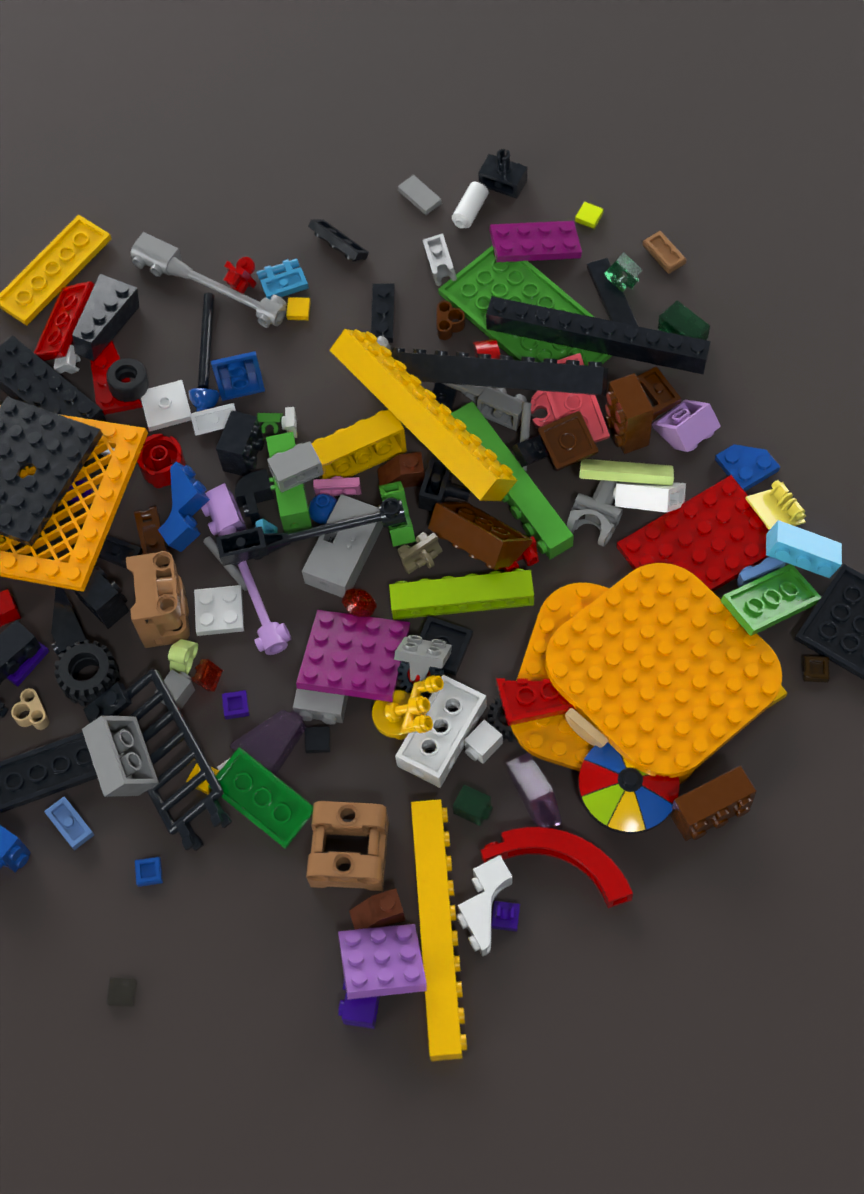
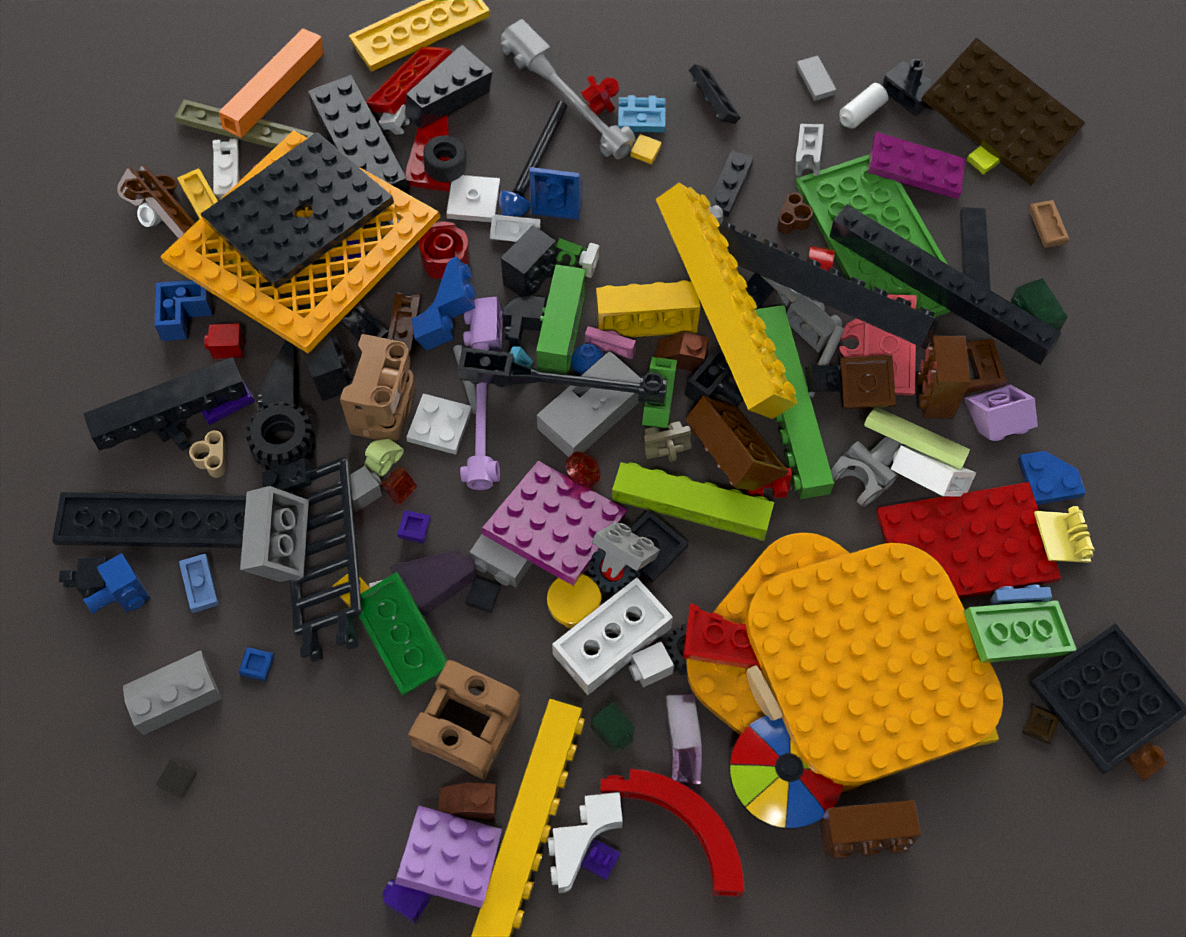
camera: 15 degrees right, 0 degrees up
(86, 923) = (170, 693): none -> light grey slope
(295, 466) = (572, 304): light grey brick -> none
(416, 707) = (595, 601): yellow piece -> none
(589, 168) = (1003, 111): none -> dark brown plate
(627, 265) = (987, 230): clear green brick -> none
(803, 549) = (1077, 591): medium azure brick -> none

